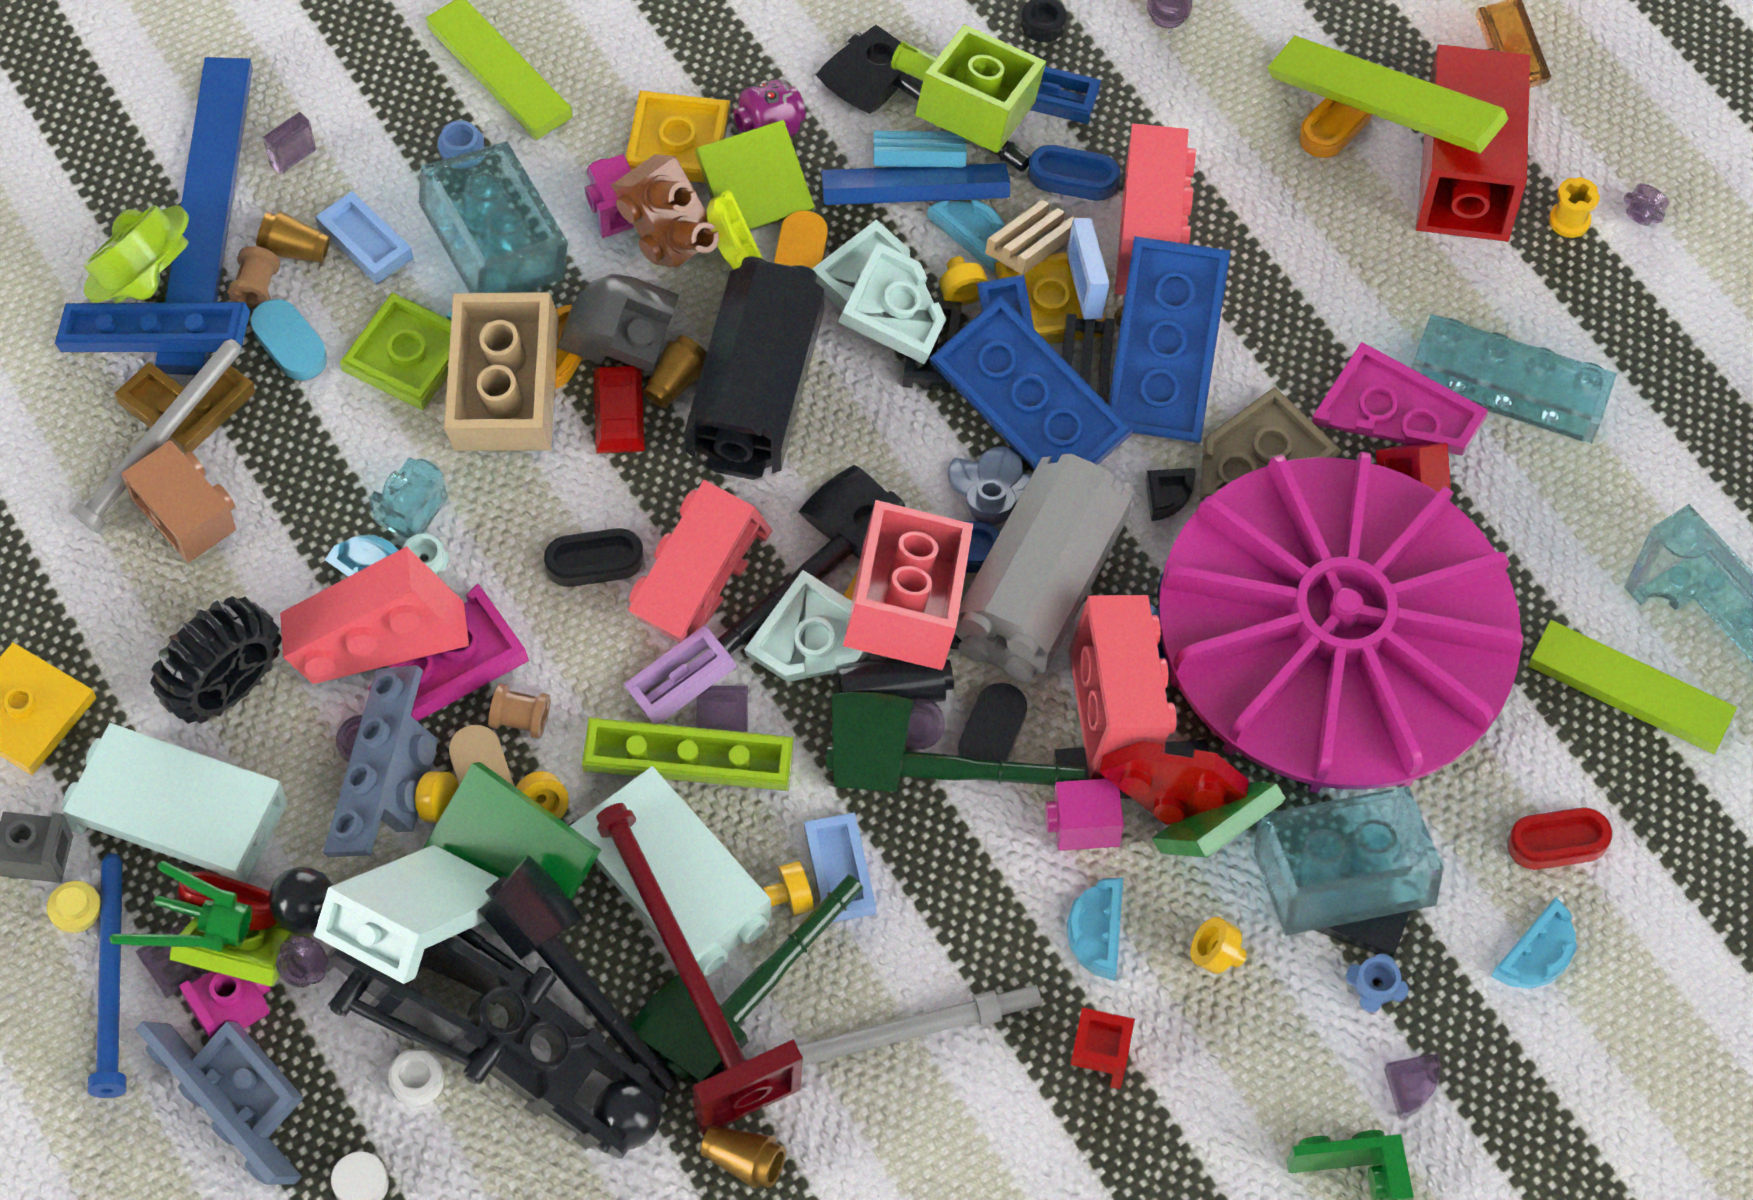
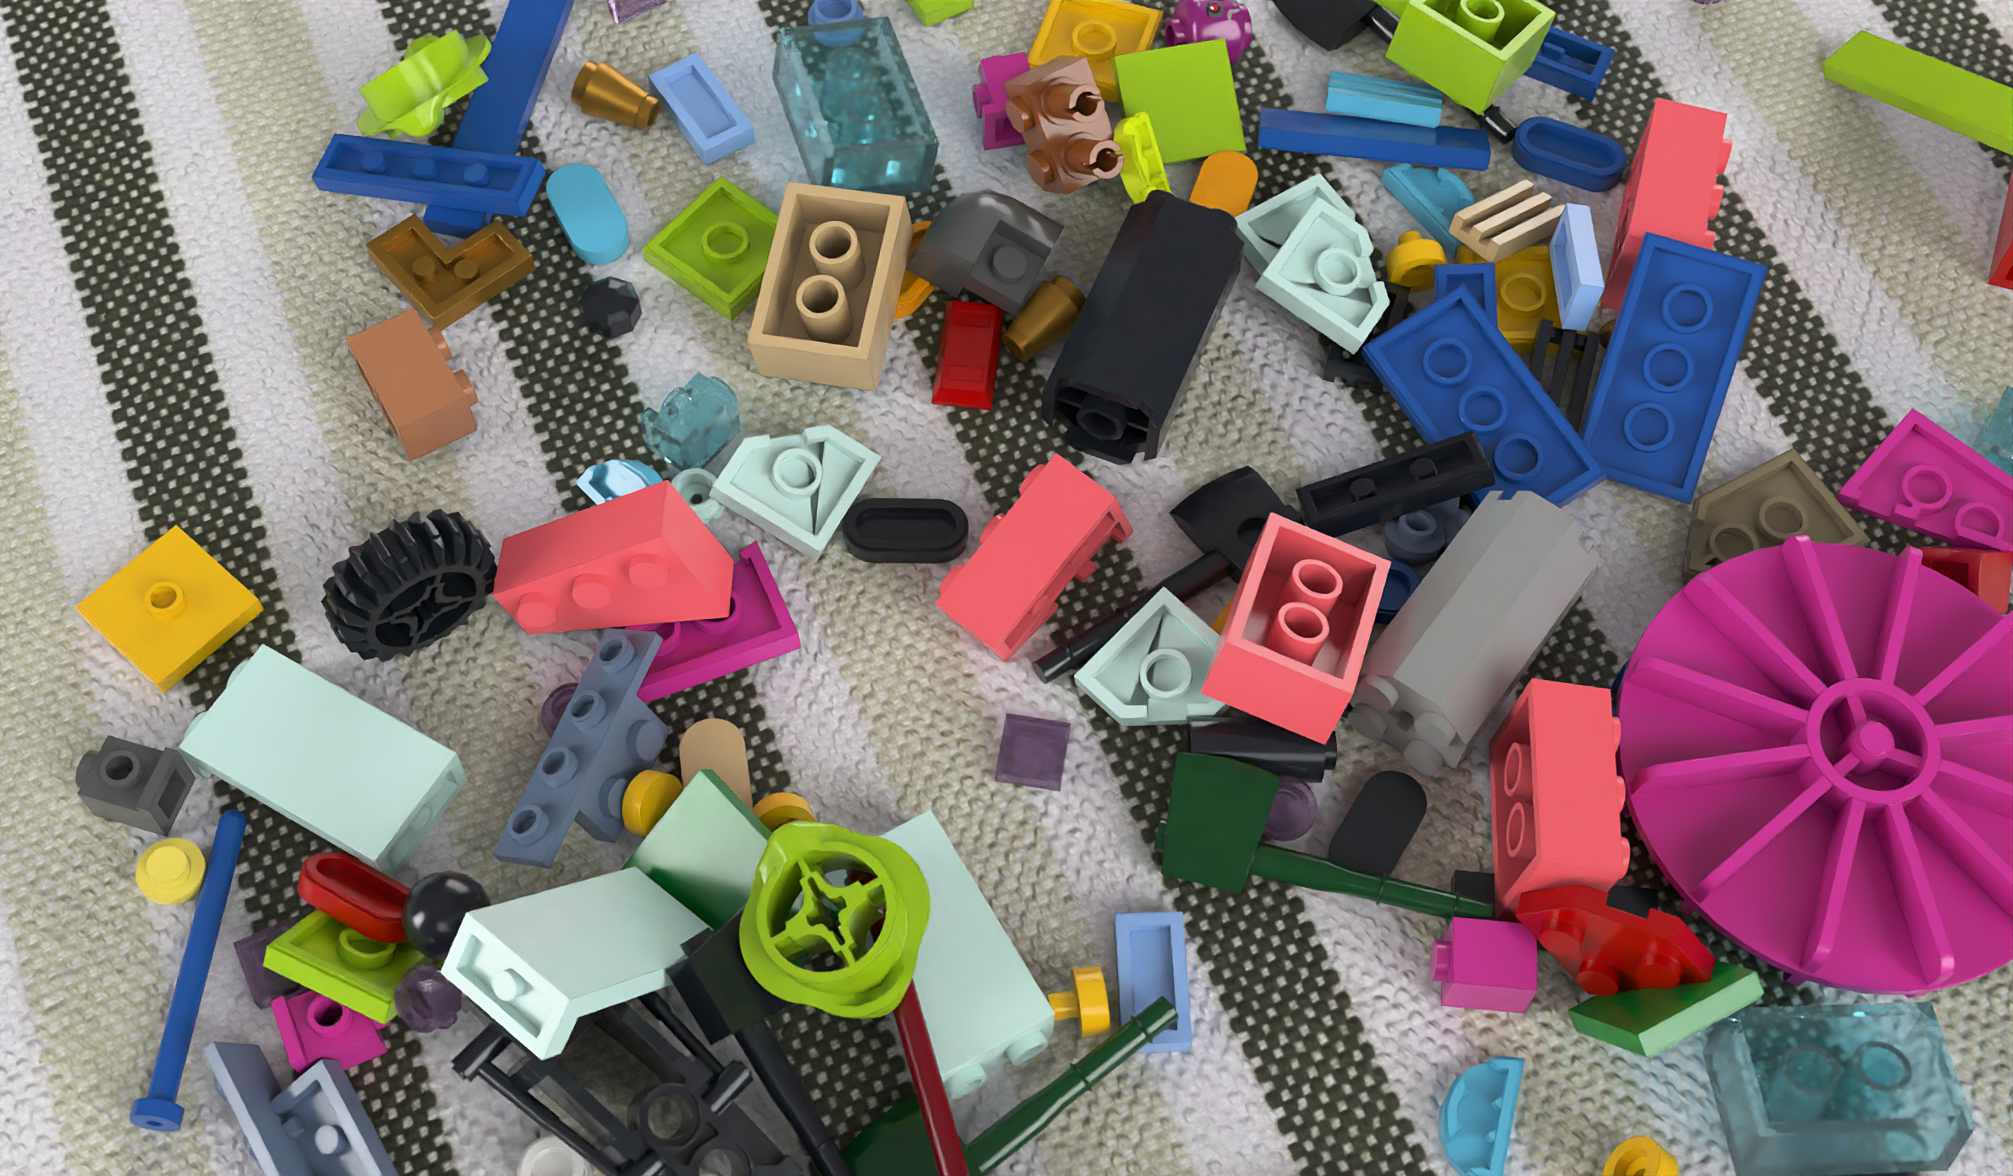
camera: 10 degrees right, 0 degrees up
(158, 434) = (407, 297): light grey bar -> none
(221, 920) = (334, 921): green plant -> none
(253, 276) = (561, 133): medium nougat bush -> none
(323, 414) = (610, 307): none -> black tile
(502, 534) = (796, 484): none -> light aqua plate
(519, 711) = (776, 709): medium nougat bush -> none
(563, 813) = (797, 861): none -> lime piece
(684, 681) = (991, 704): lavender tile -> none
(688, 753) = (981, 800): lime brick -> none
(970, 464) = (1396, 485): none -> black tile
(1169, 491) = (1641, 558): black tile -> none
(1331, 128) = (1895, 144): light orange tile -> none

